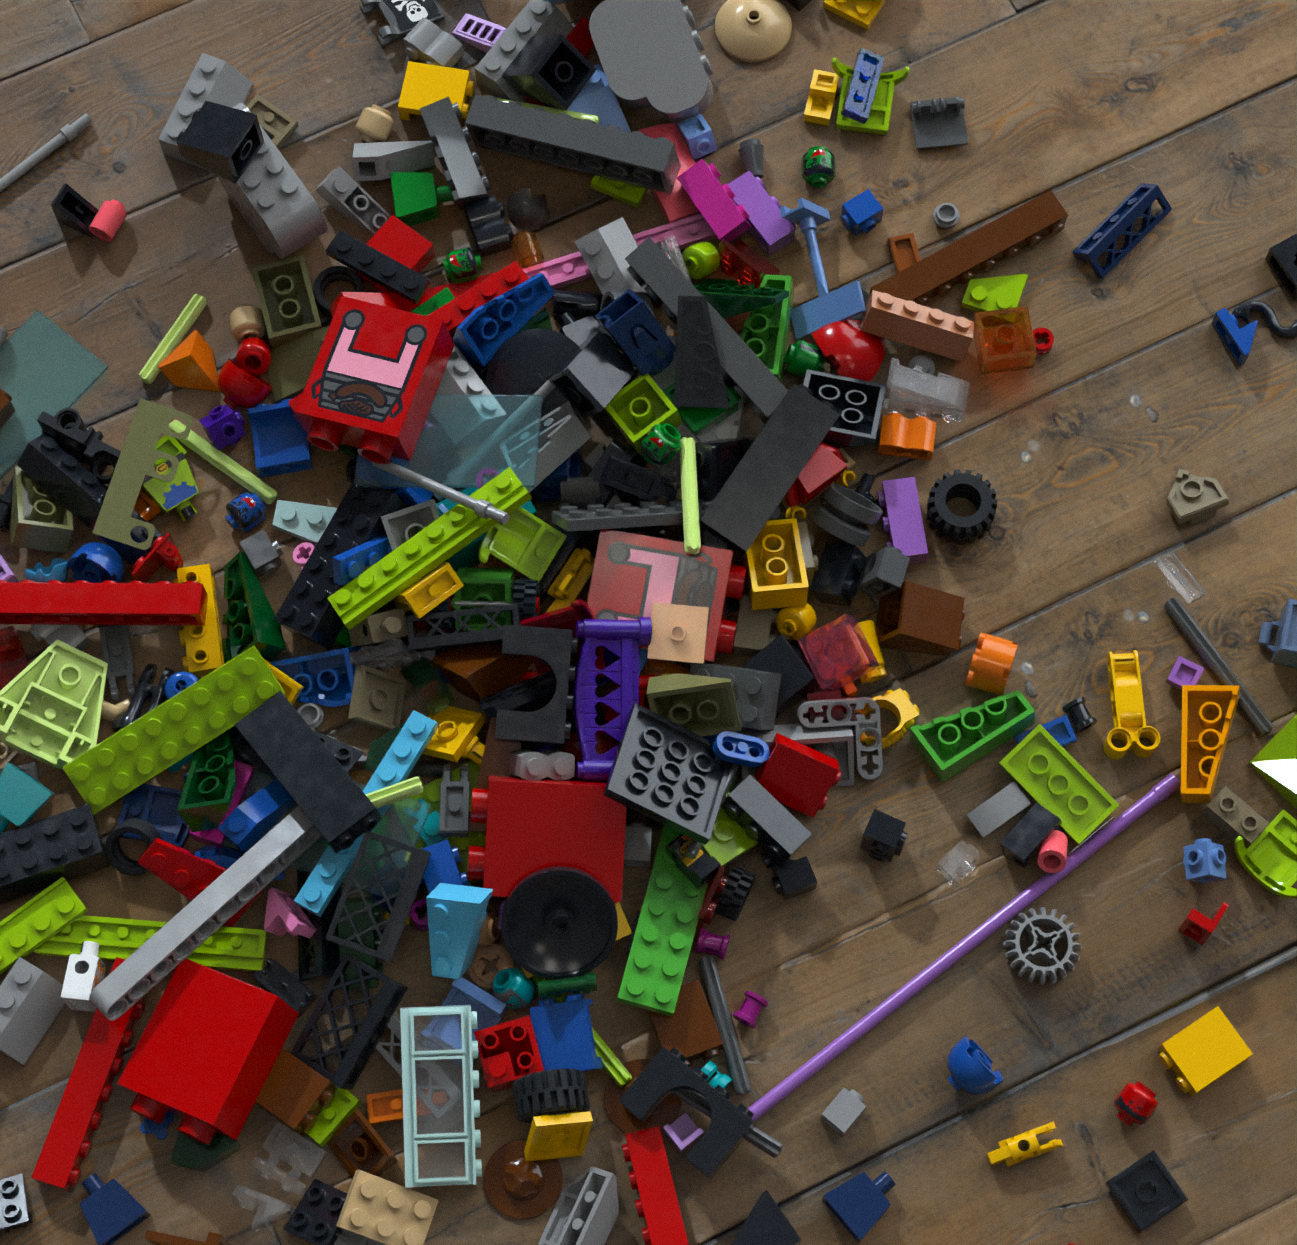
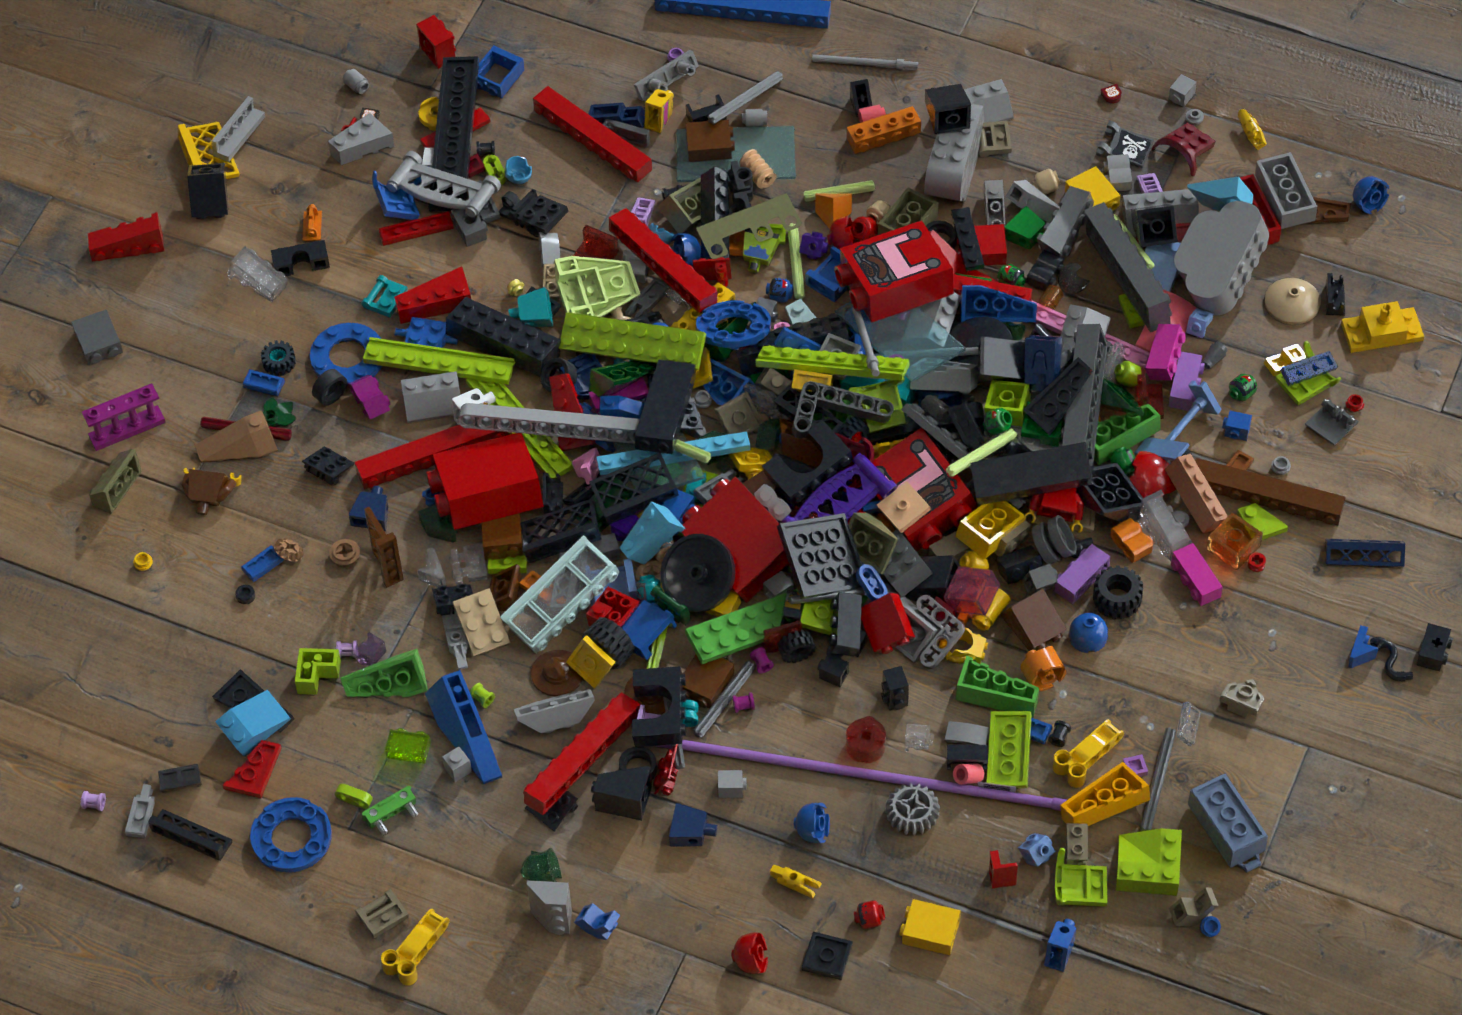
camera: 50 degrees right, 15 degrees down
(59, 398) = (761, 173): none -> light nougat piece
(141, 225) = (883, 130): none -> orange brick
(237, 579) = (713, 314): none -> blue plate
(409, 946) = (623, 527): none -> dark purple brick
(418, 985) = (608, 546): none -> flat silver brick
(487, 588) = (837, 404): none -> dark grey beam
(730, 1216) = (639, 752): none -> black tyre
(769, 1169) = (666, 778): none -> red hinge
(929, 913) = (865, 740): none -> clear red brick
(939, 75) = (1355, 399): none -> red plate
(979, 578) = (1088, 632): none -> blue cylinder
(1007, 412) = (1196, 574): none -> dark pink brick

